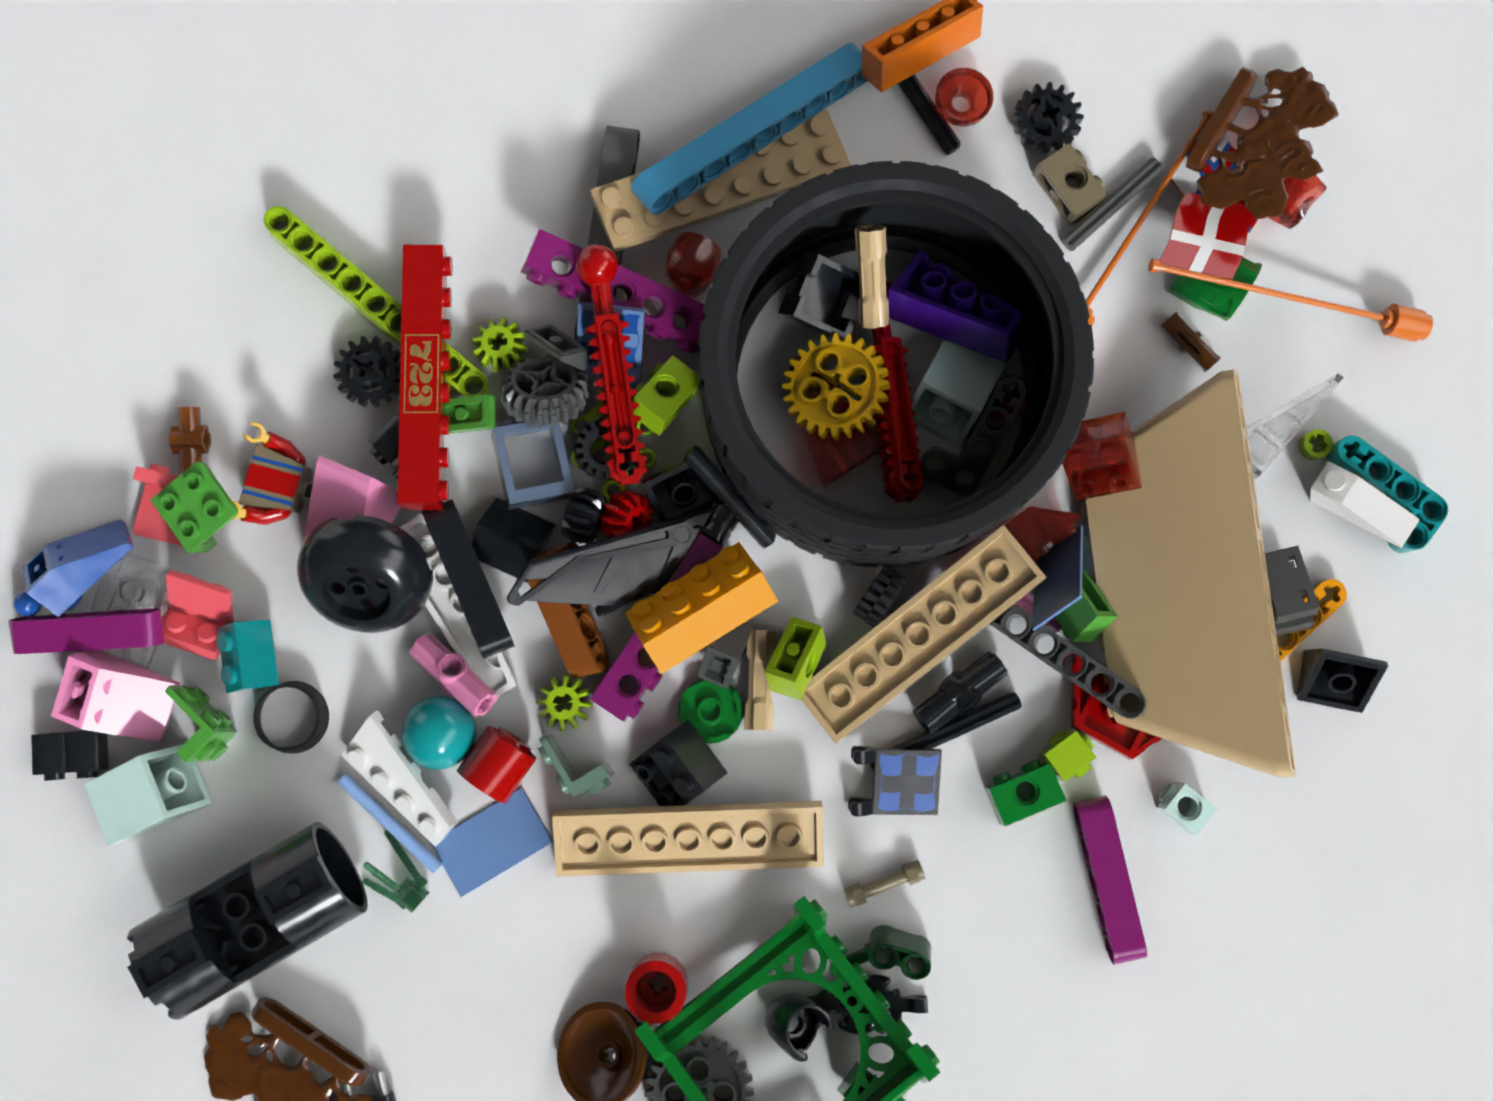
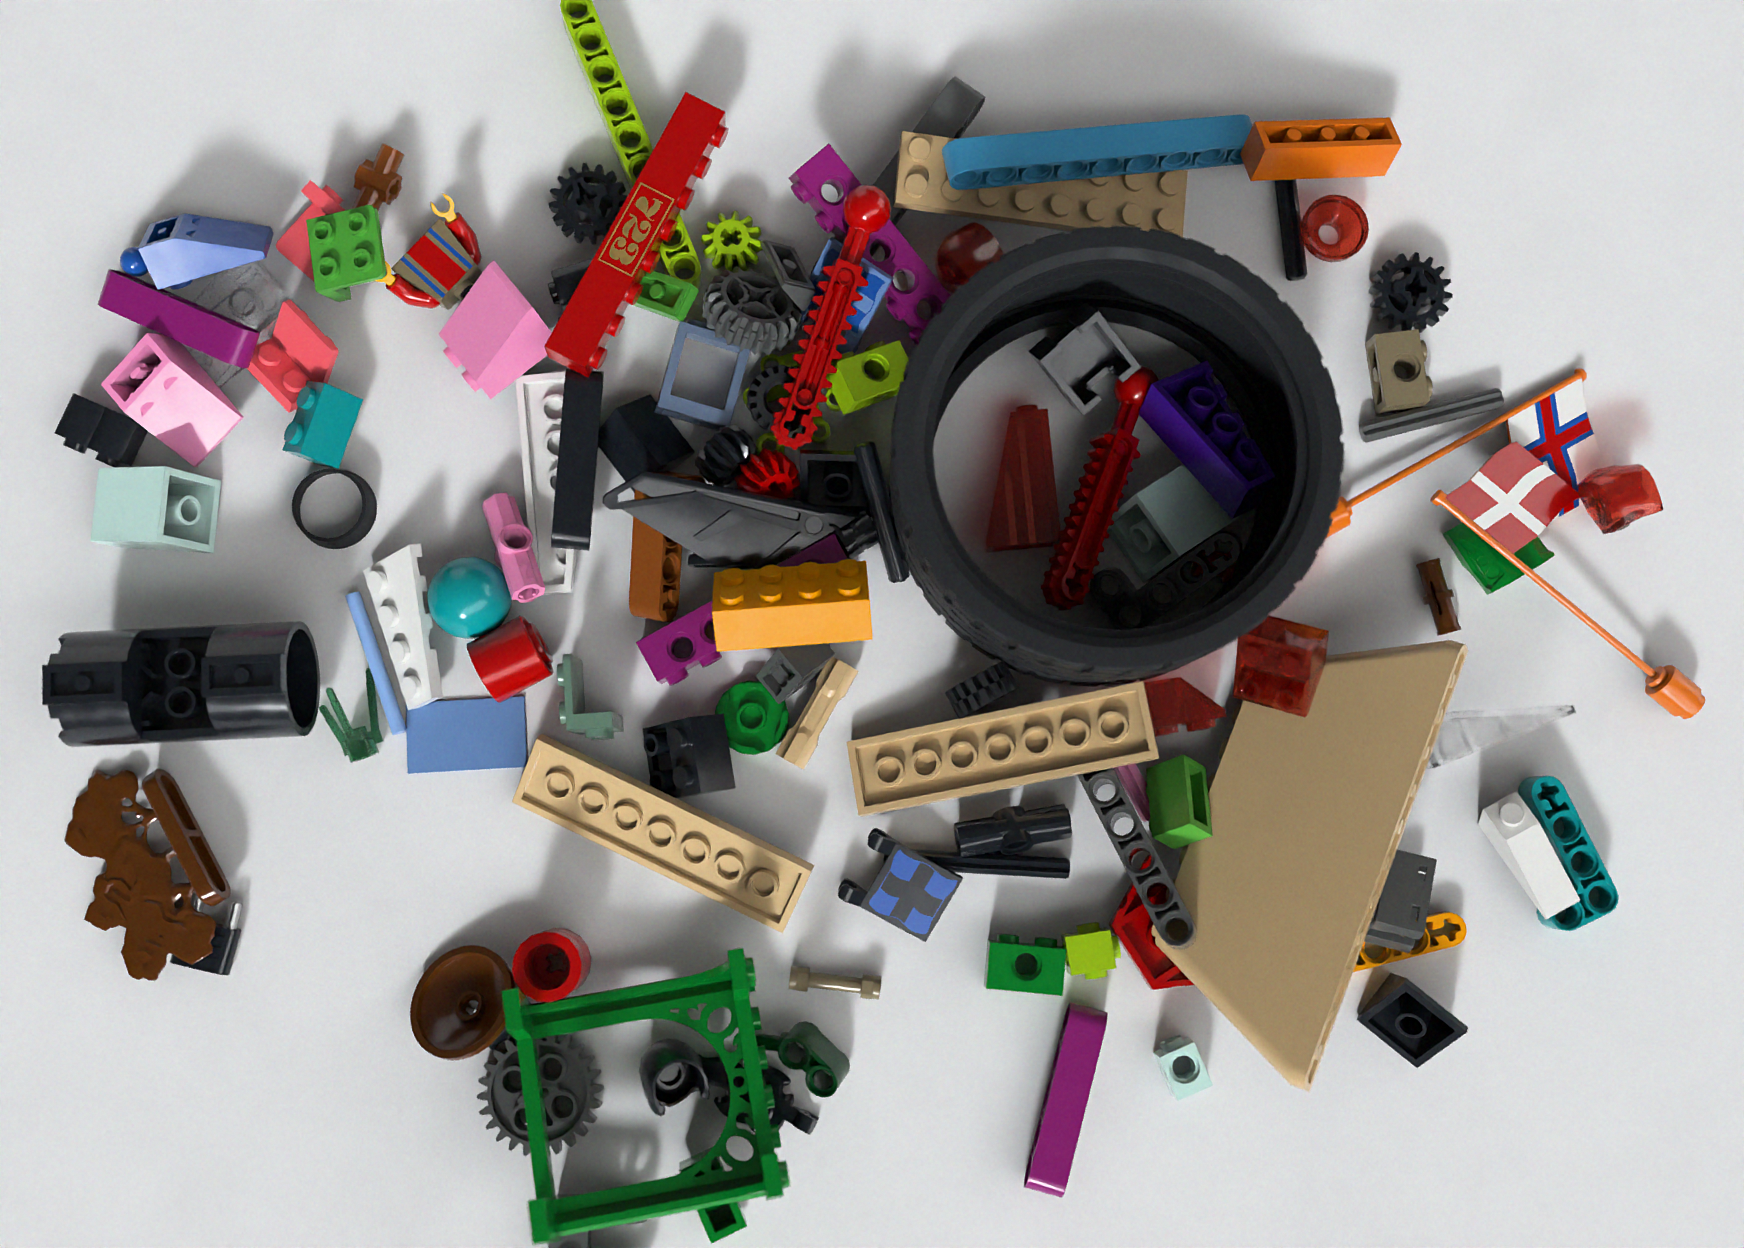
camera: 30 degrees right, 0 degrees up
(215, 726) = (253, 477): bright green bracket -> none
(353, 595) = (456, 417): black brick -> none
(565, 714) = (604, 646): lime gear -> none
(795, 658) = (863, 708): lime brick -> none
(851, 362) = (1075, 438): yellow gear -> none
(871, 253) = (1151, 336): tan axle -> none
(1064, 579) = (1178, 763): medium blue window -> none
(1266, 151) = (1624, 439): reddish brown plant -> none
(1325, 442) = (1525, 770): lime bush -> none

